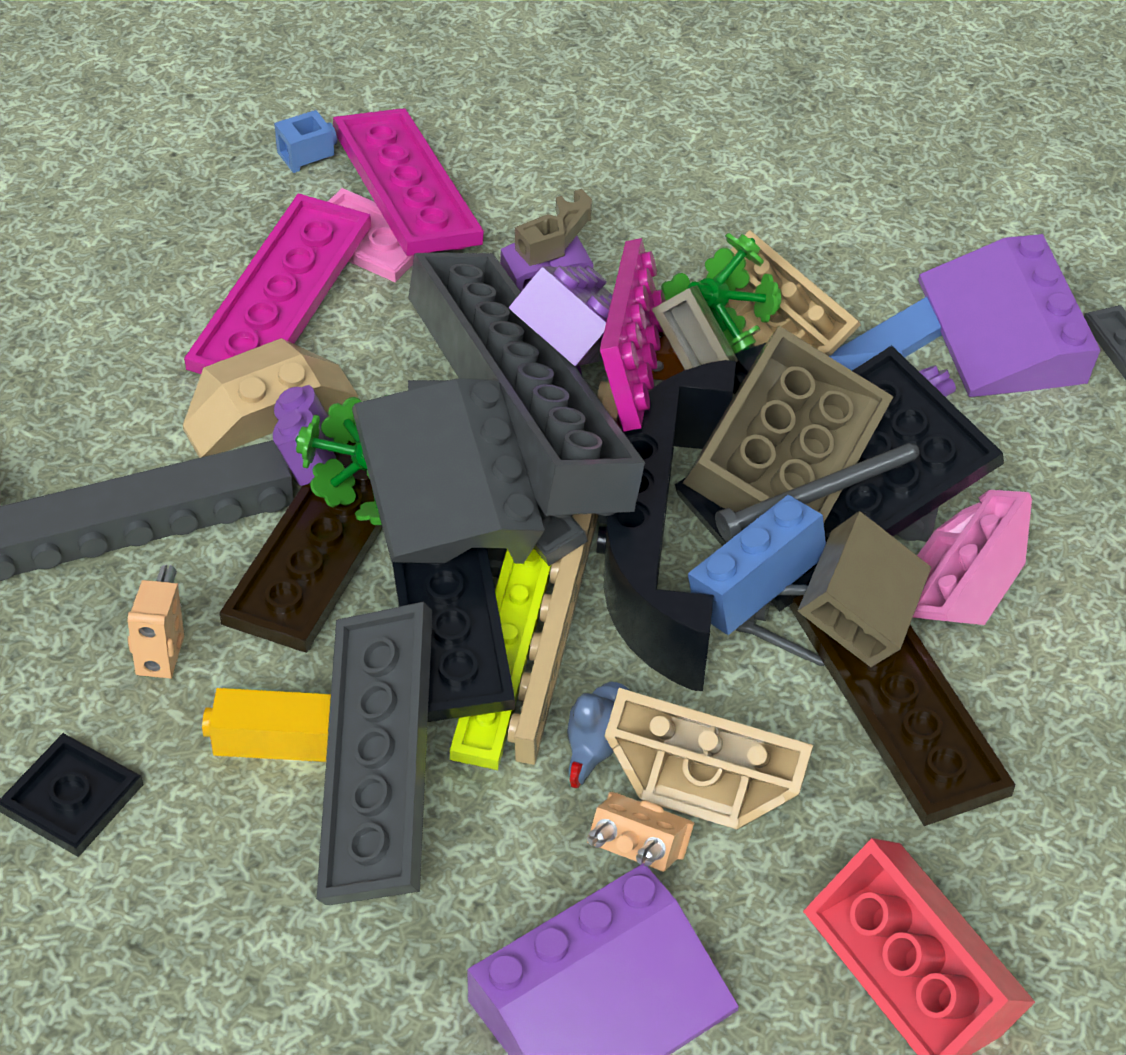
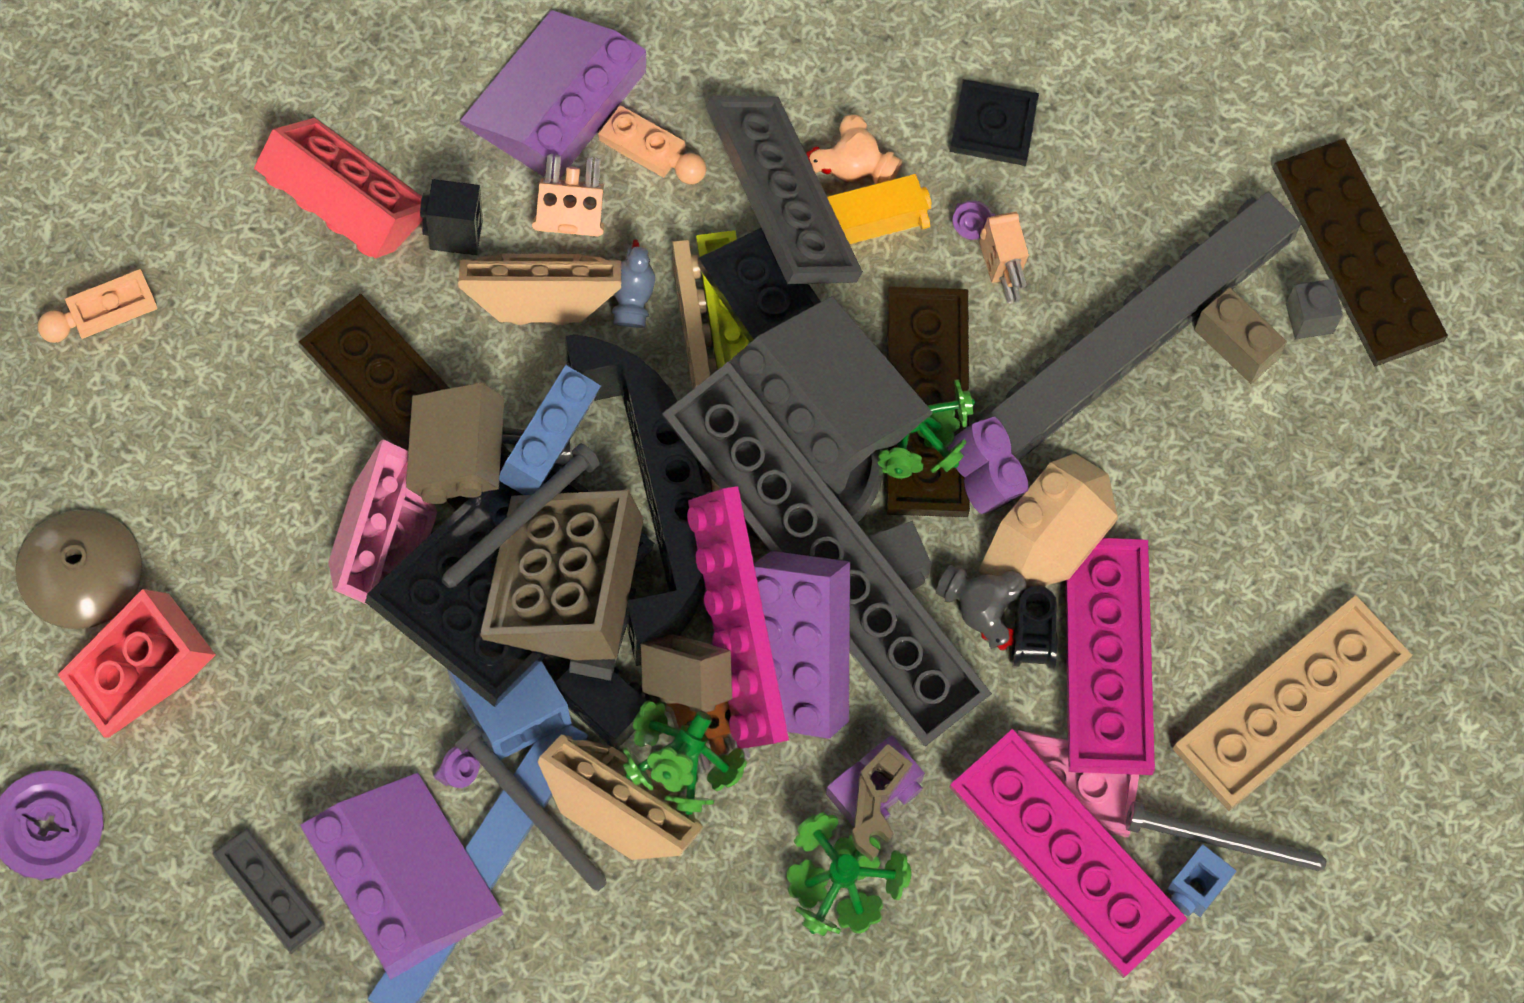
camera: 155 degrees right, 20 degrees up
(137, 226) = (1292, 702): none -> tan plate
(165, 693) = (970, 218): none -> medium lavender plate
(261, 793) = (855, 155): none -> light nougat animal
(331, 181) = (1138, 818): none -> dark grey bar
(337, 328) = (1035, 636): none -> black piece
(370, 360) = (983, 601): none -> dark grey animal
(499, 884) = (651, 146): none -> light nougat plate
(609, 196) = (844, 871): none -> bright green plant
(792, 845) = (452, 216): none -> black brick
(869, 325) = (531, 807): none -> dark grey bar

